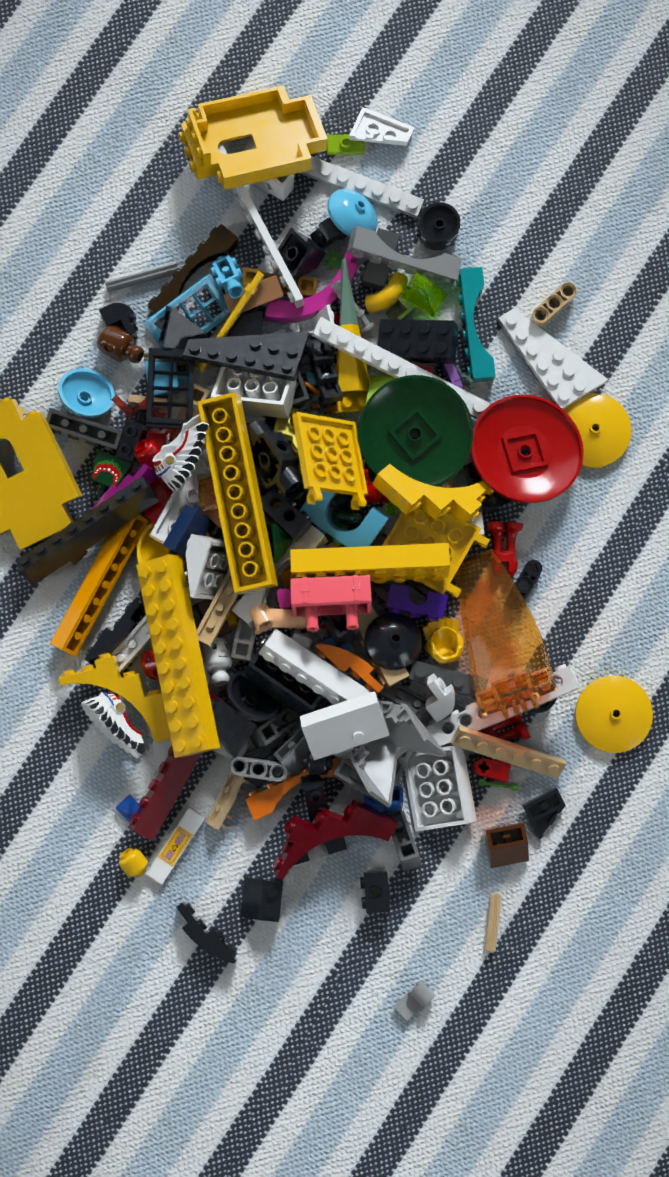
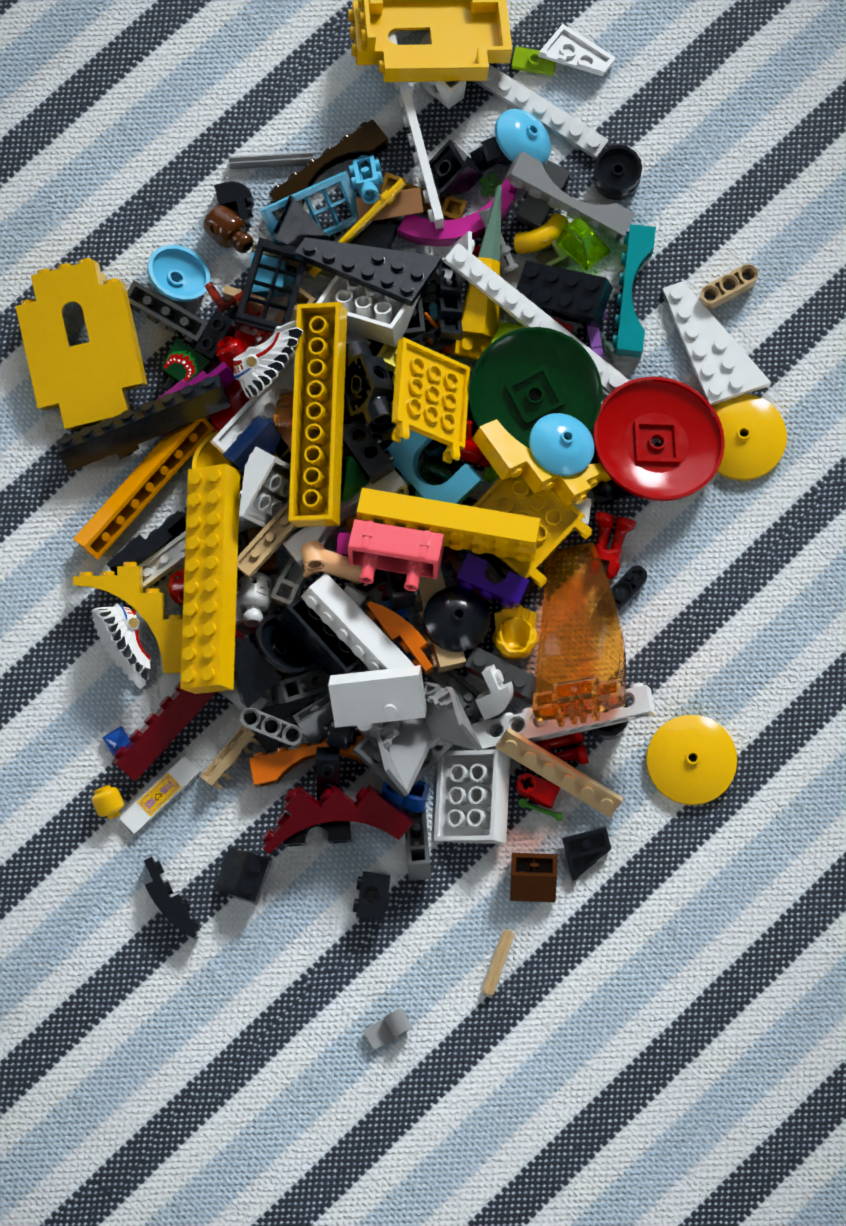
camera: 25 degrees right, 5 degrees down
(233, 620) = (282, 557): yellow tile -> none
(443, 479) = (554, 451): none -> medium azure dish

